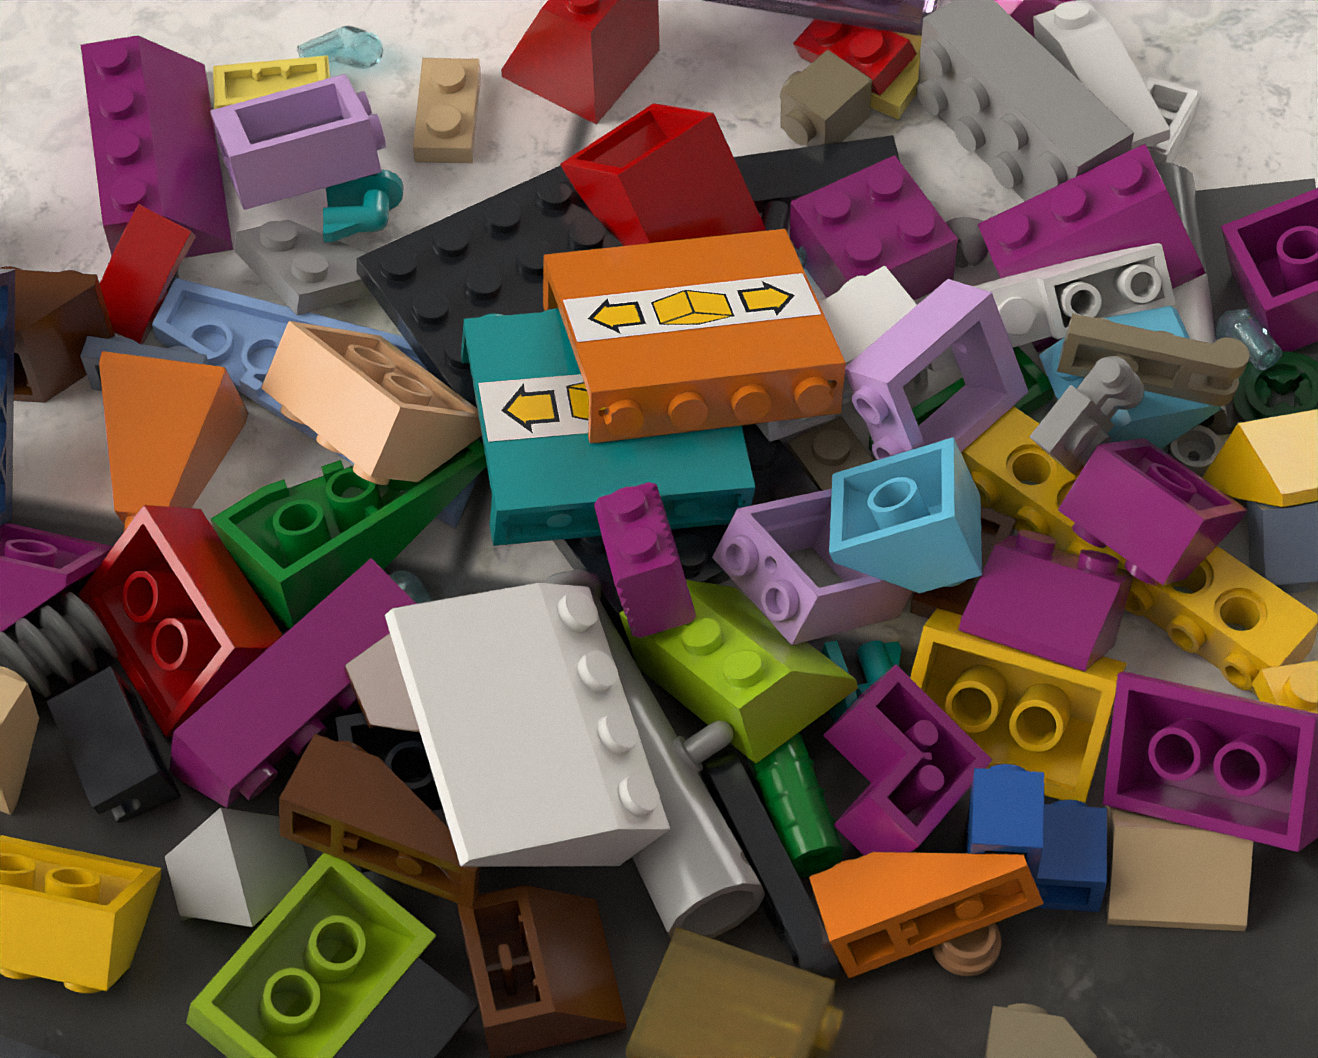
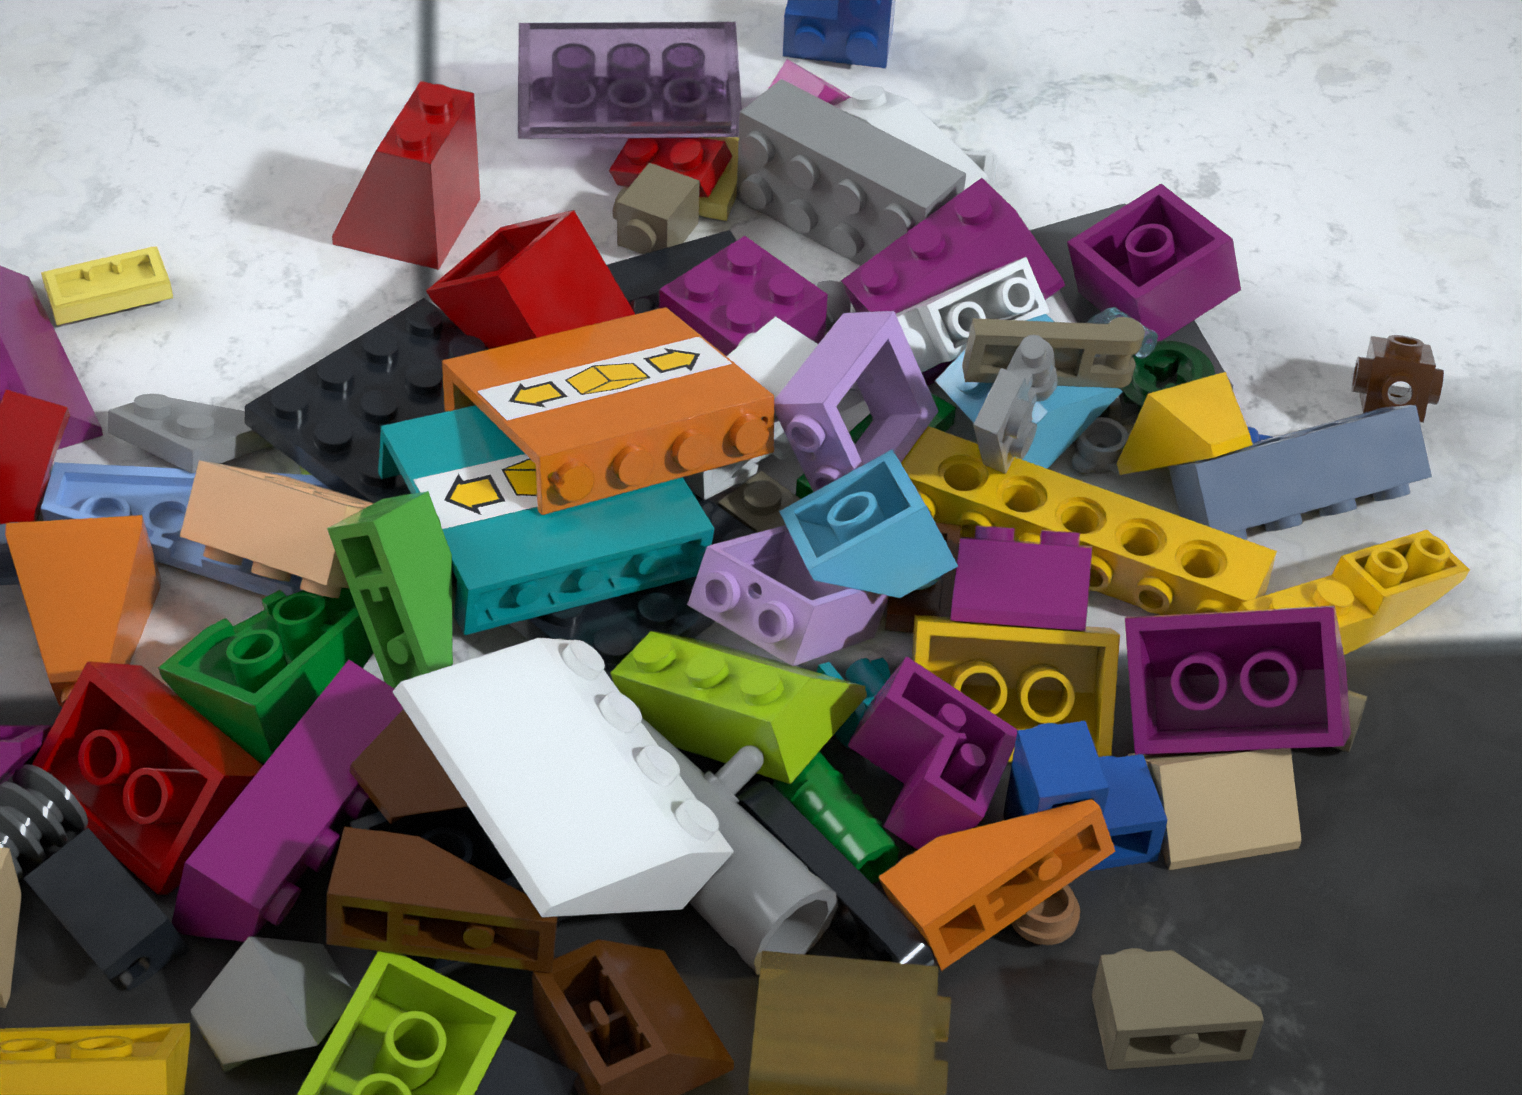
camera: 20 degrees left, 10 degrees down
(298, 140) = (149, 319): lavender window -> none
(346, 46) = (173, 238): clear light blue arm -> none
(360, 205) = (225, 365): teal piece -> none
(439, 493) = (400, 583): none -> bright green slope
(447, 110) = (289, 278): tan plate -> none
(644, 560) = (629, 608): magenta brick -> none
(1149, 510) = (1090, 485): magenta slope -> none

